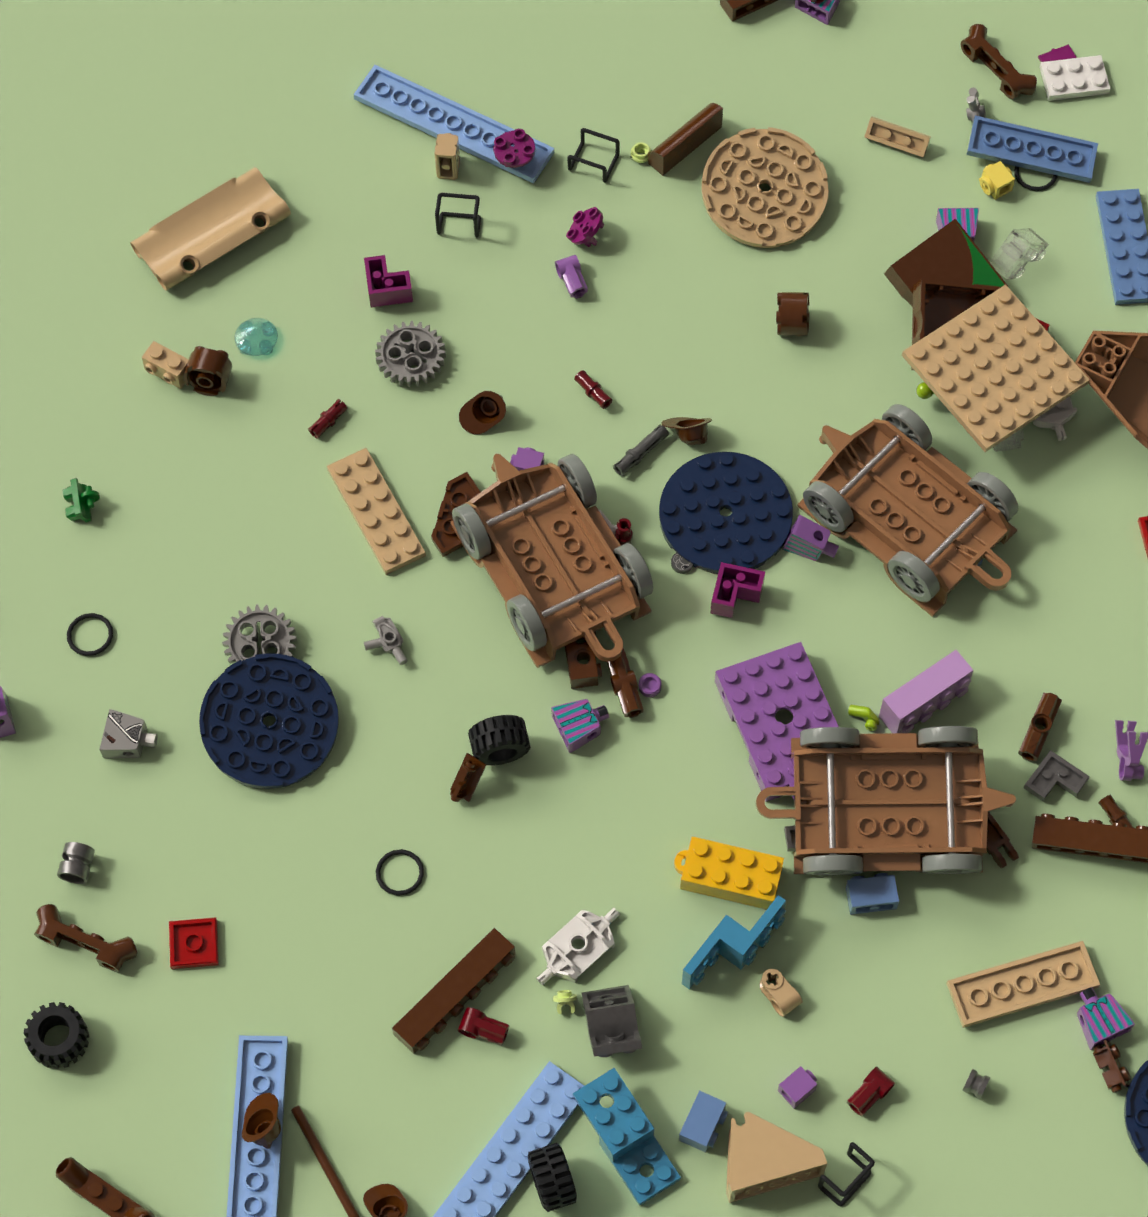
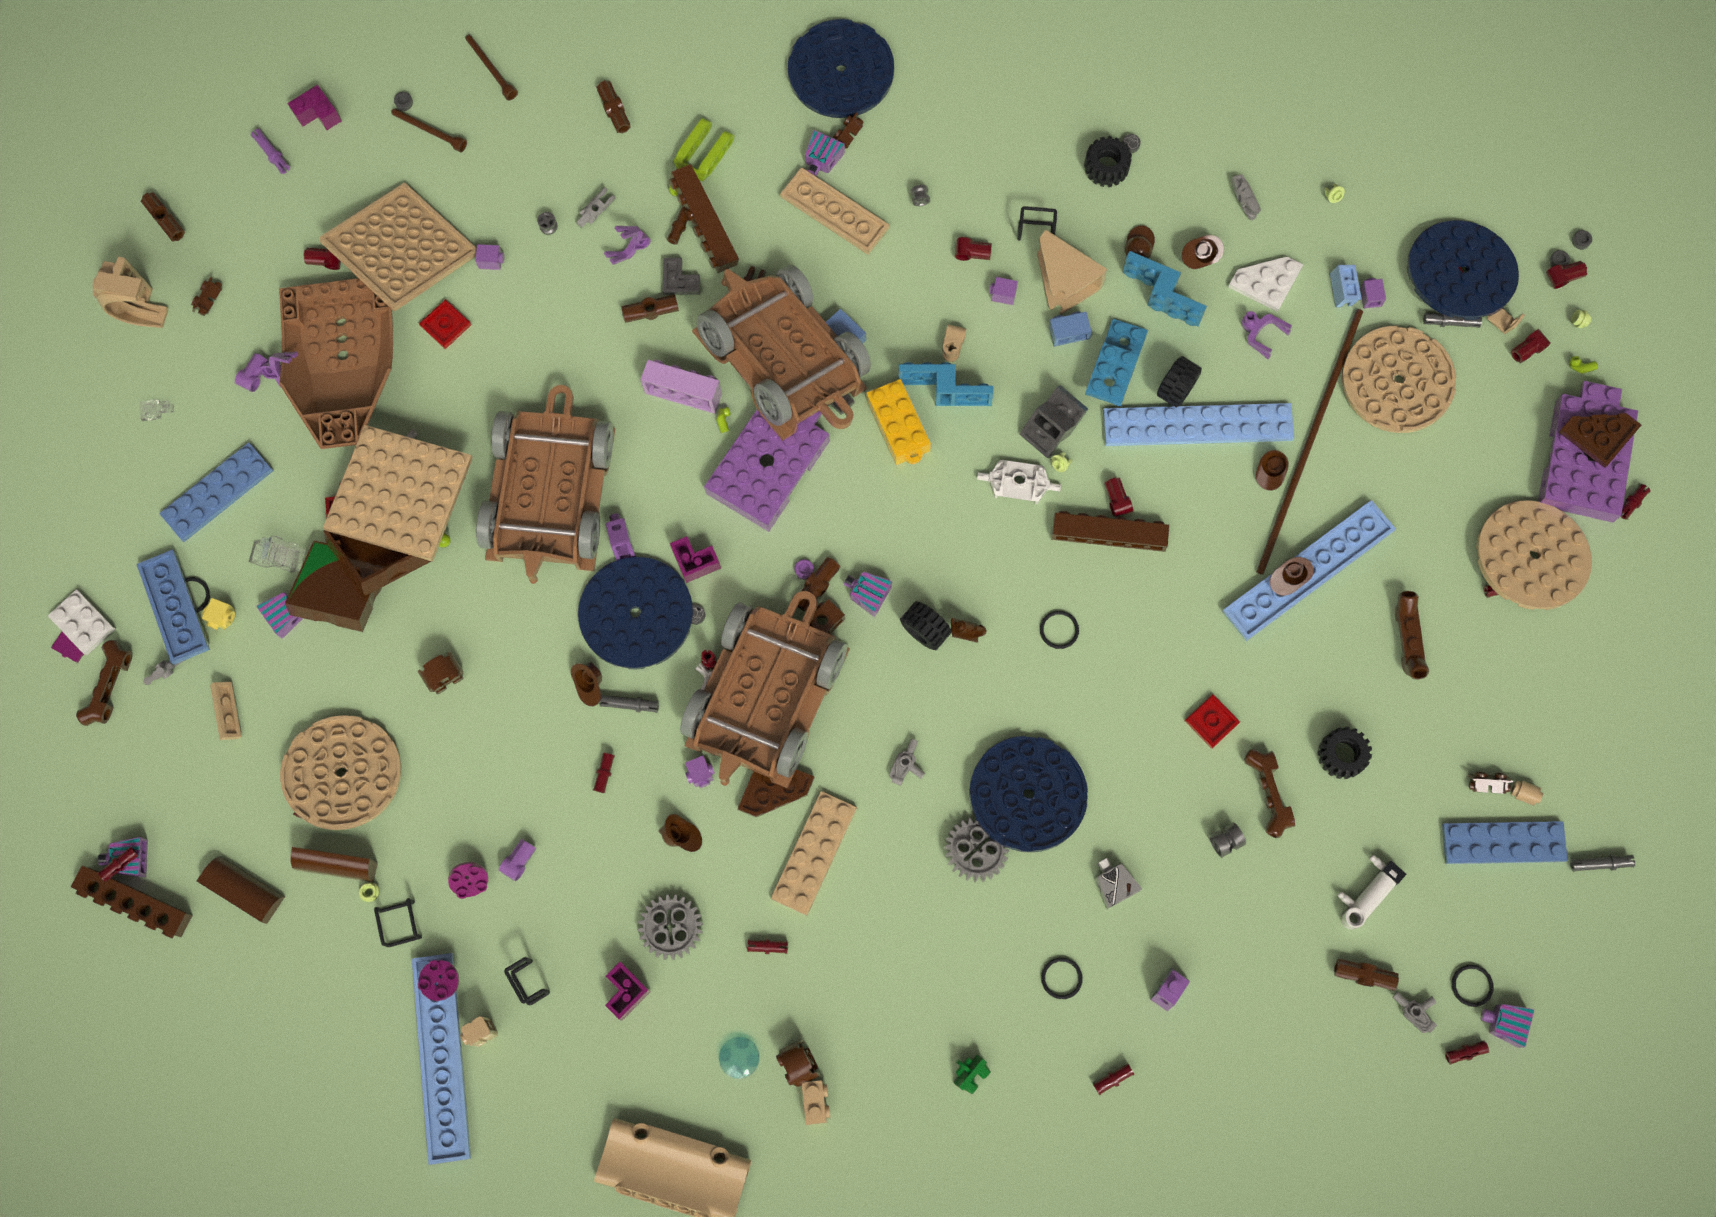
camera: 125 degrees left, 10 degrees up
(722, 62) = (241, 889): none -> reddish brown brick

